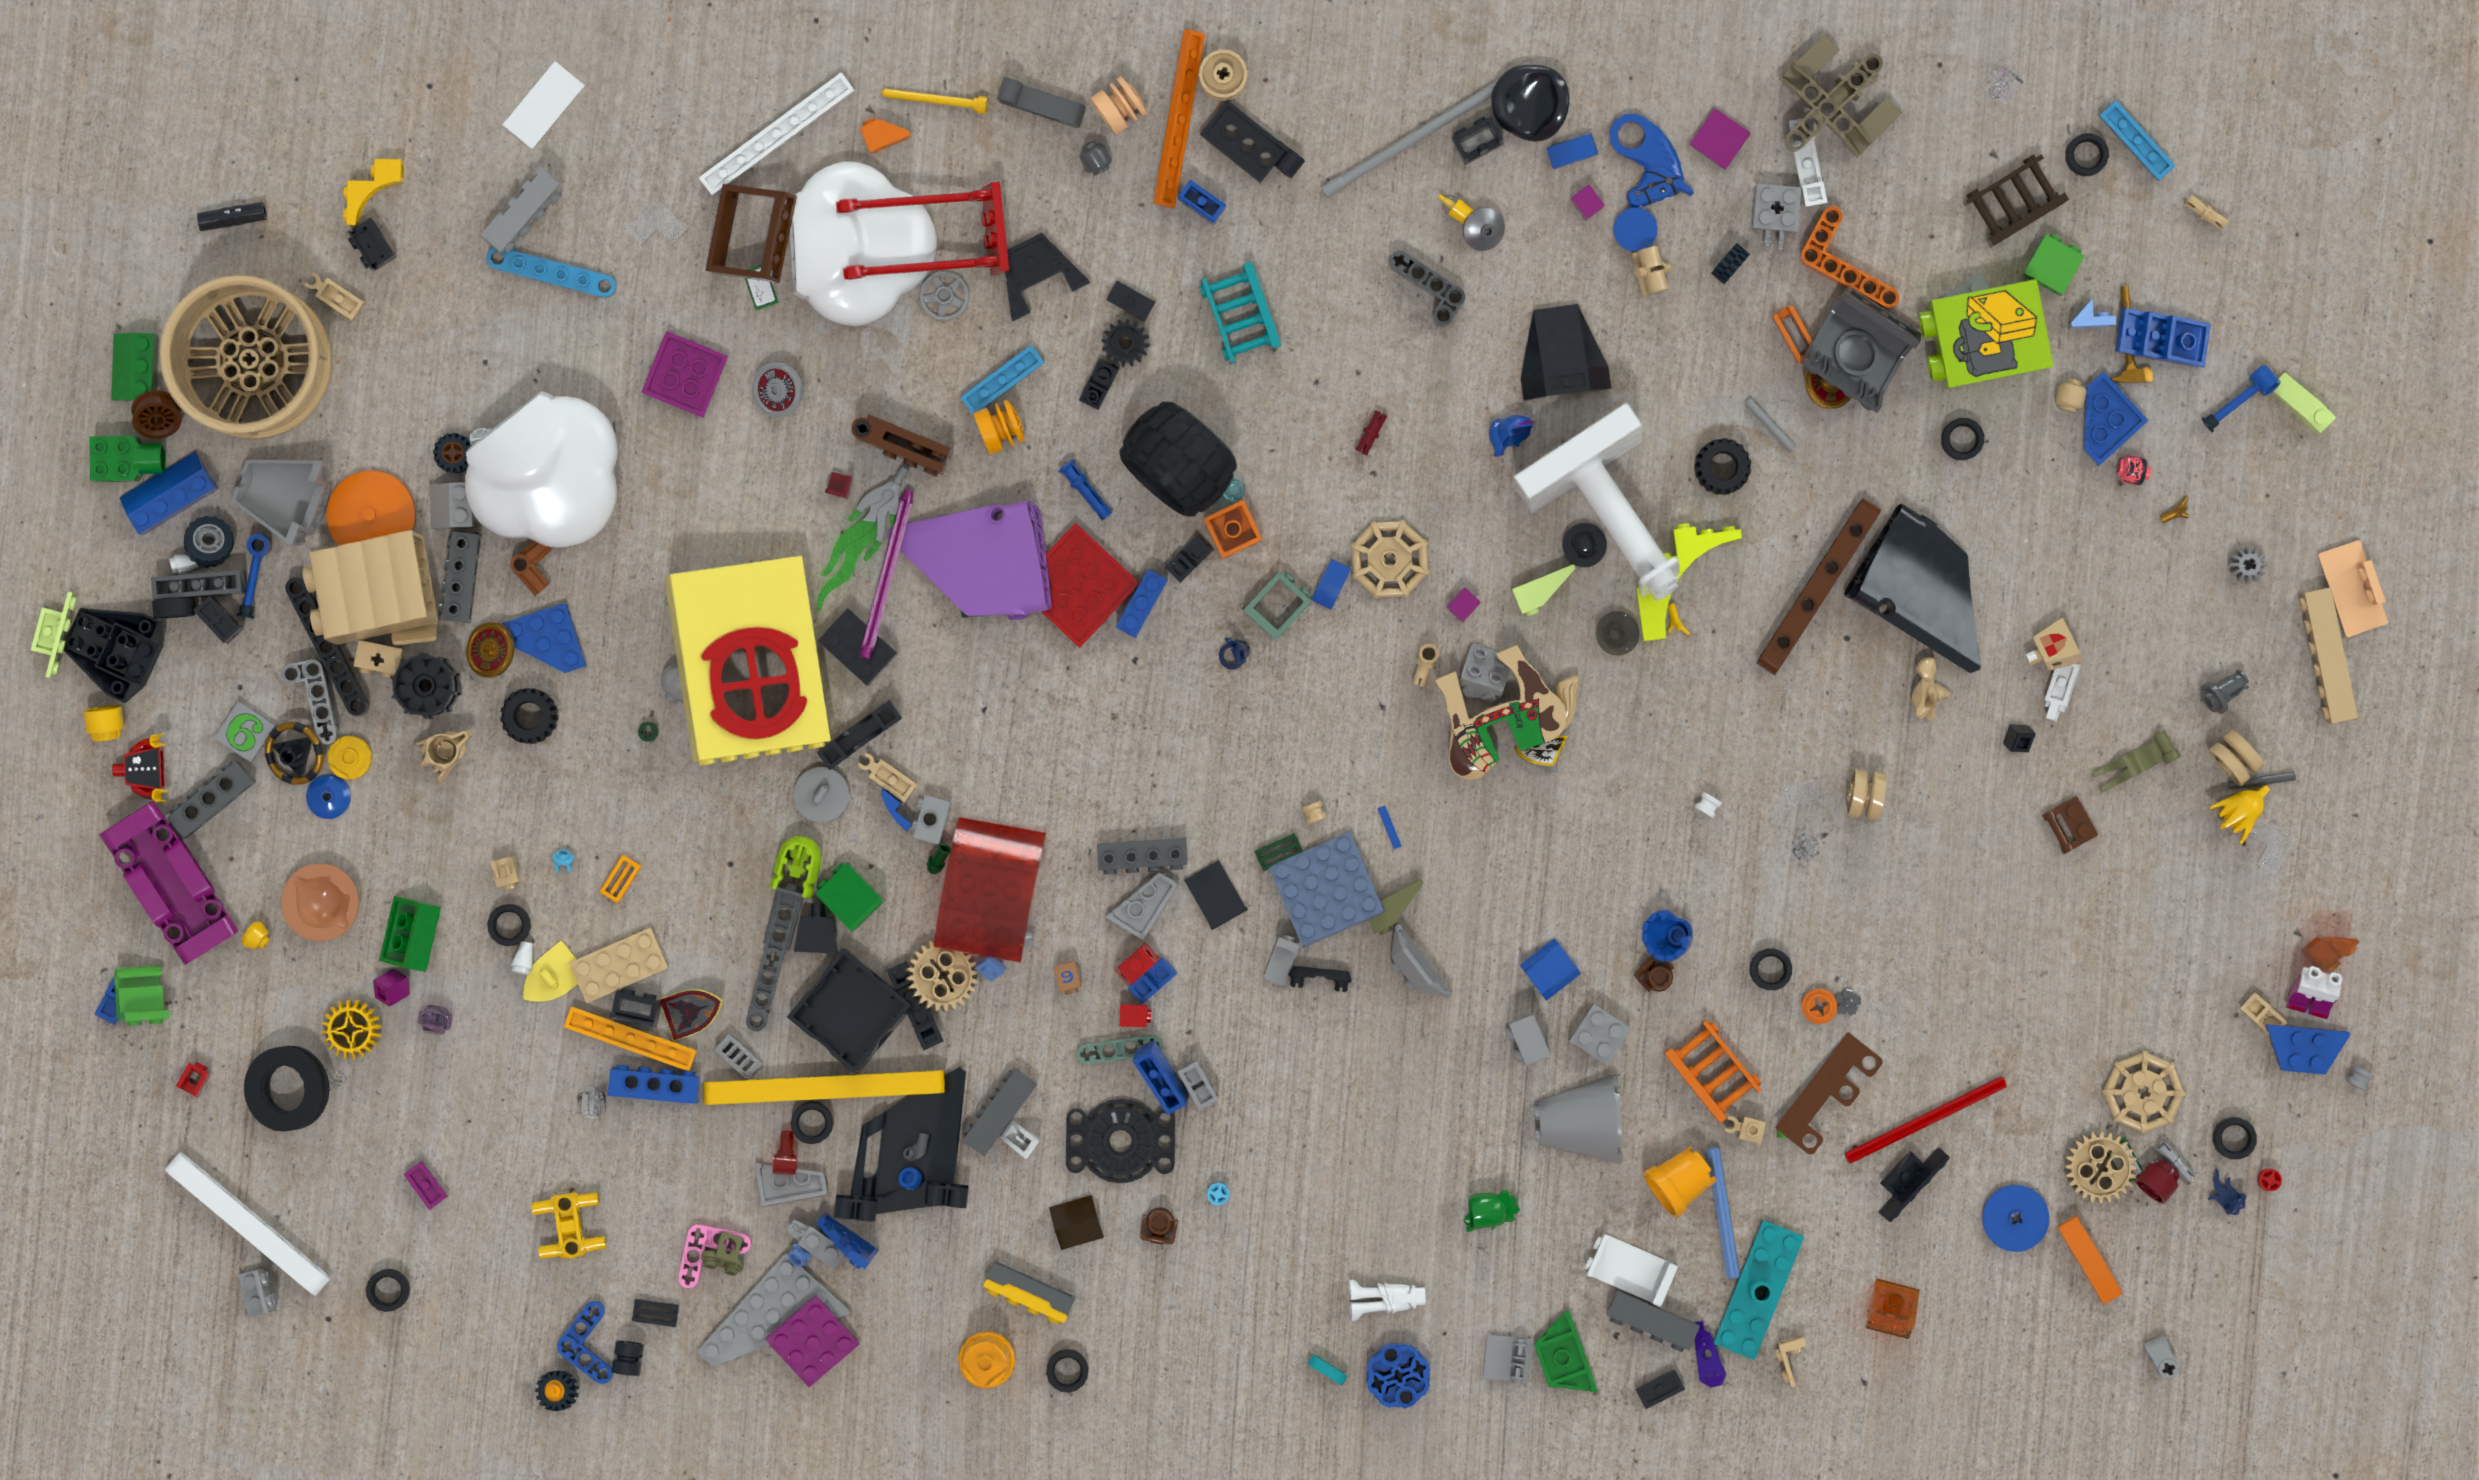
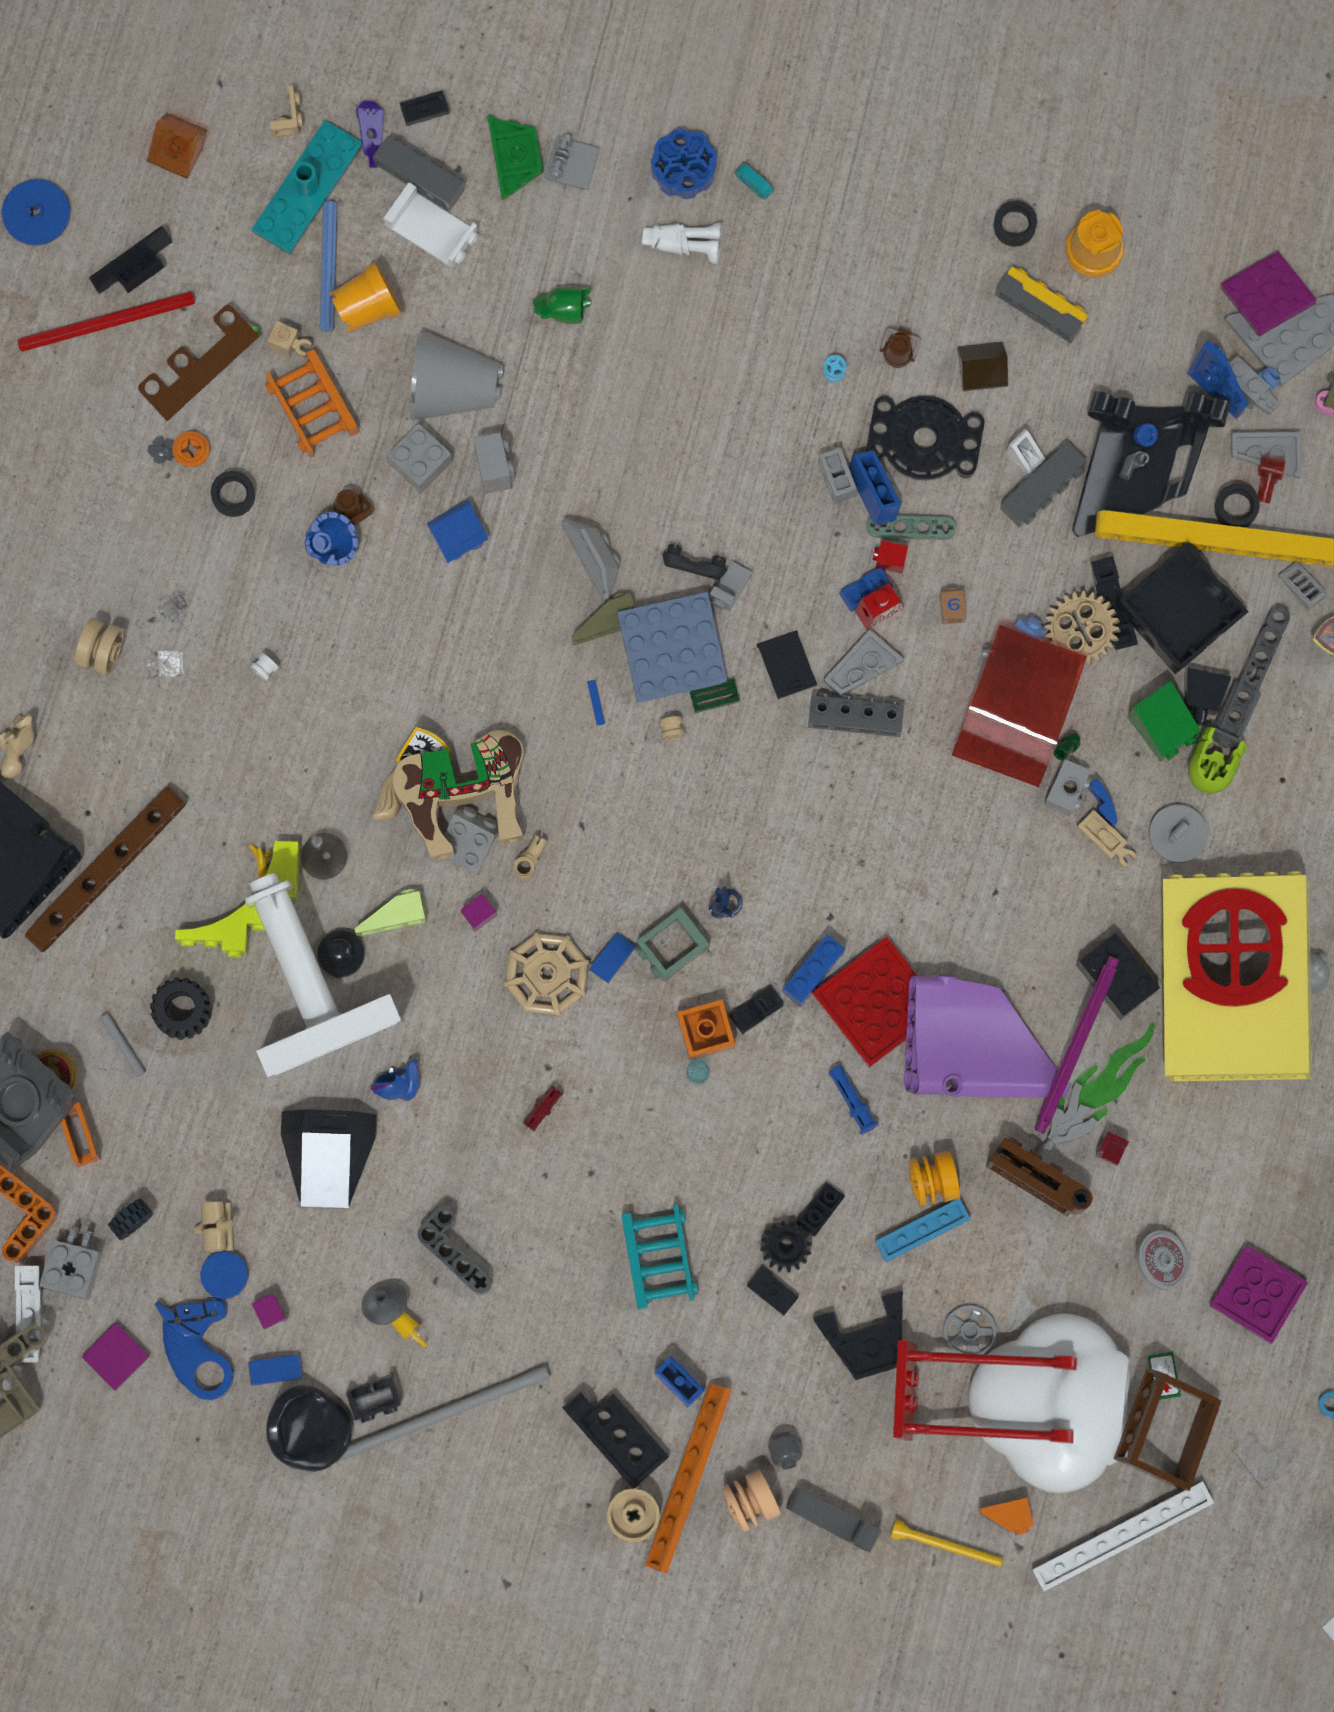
camera: 175 degrees left, 10 degrees down
(859, 734) = (1118, 892): black arch -> none
(1178, 459) = (751, 1107): black tyre -> none

